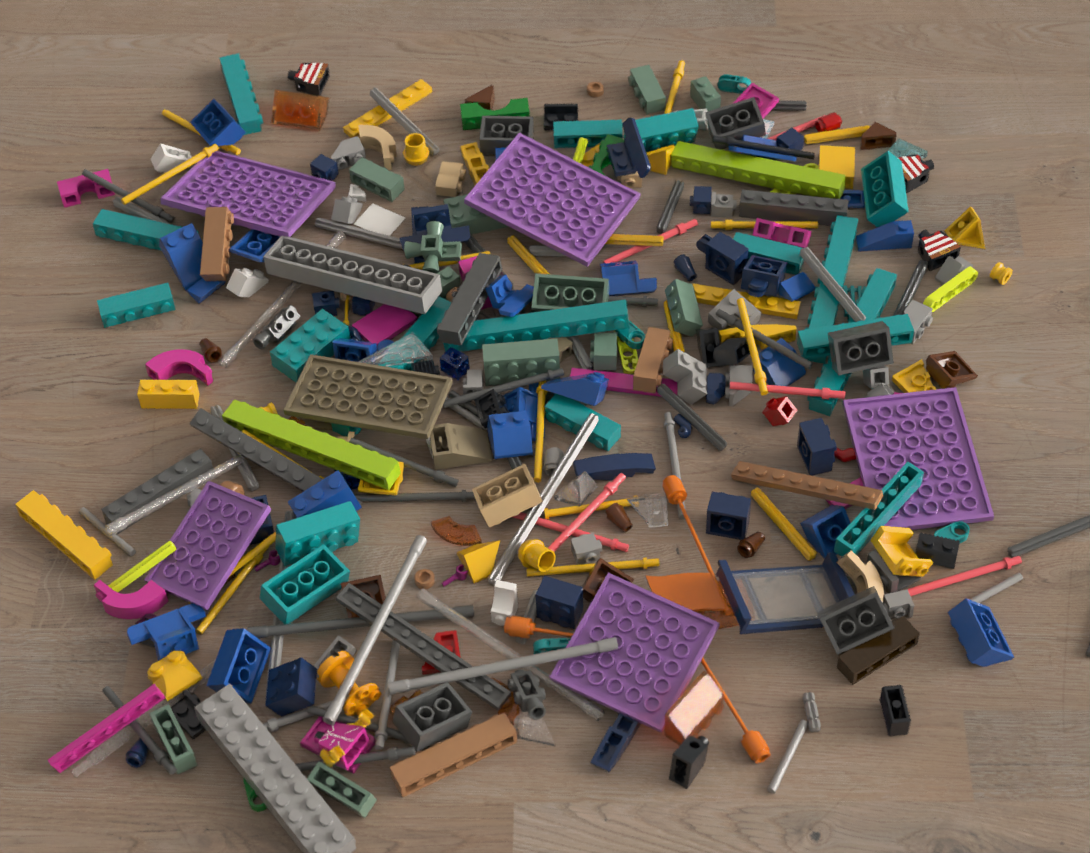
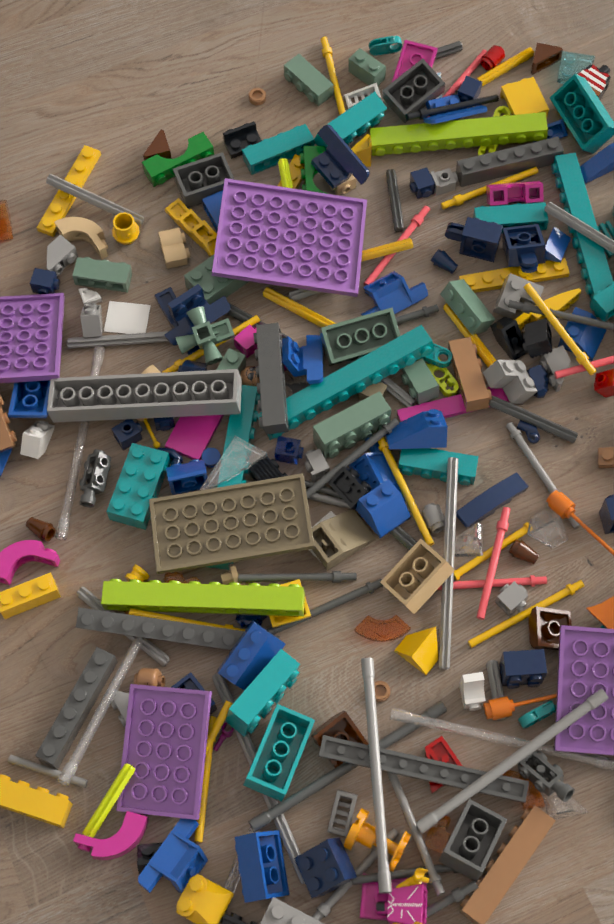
camera: 25 degrees left, 15 degrees up
(458, 575) = (408, 674): magenta hand -> none
(535, 555) = (473, 626): yellow piece -> none

